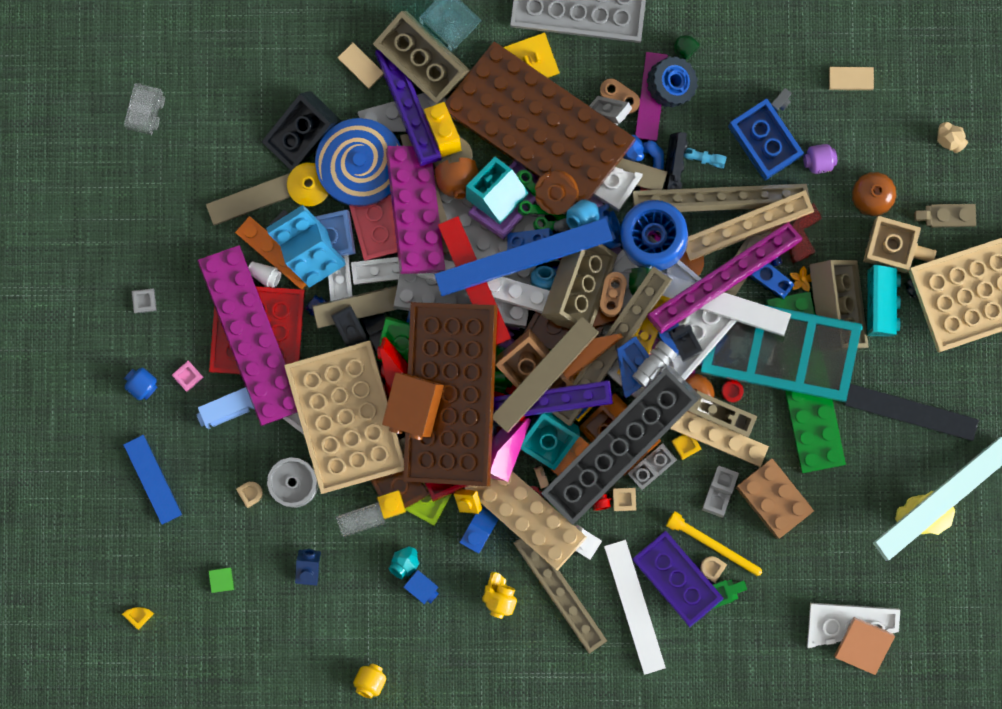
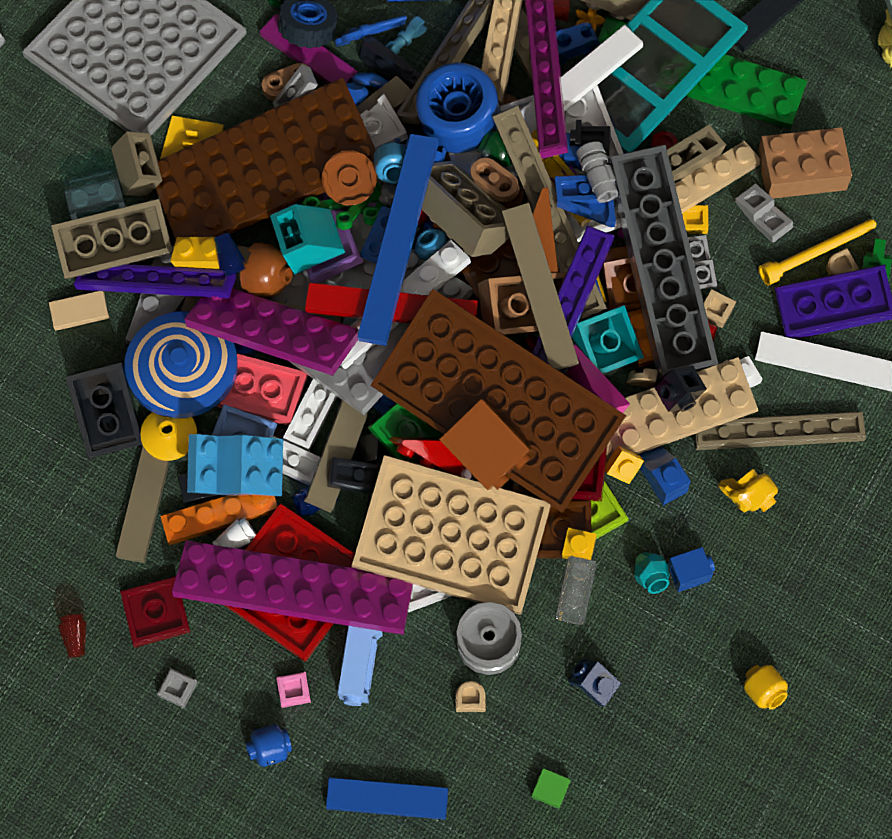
camera: 55 degrees left, 15 degrees down
(137, 212) = (73, 634): none -> clear red cone
(182, 253) = (154, 612): none -> dark red tile
(444, 149) = (228, 255): none -> clear blue cone
(487, 35) = (136, 164): none -> dark tan brick
(534, 510) = (680, 388): none -> black brick
(677, 121) = (365, 30): none -> blue piece

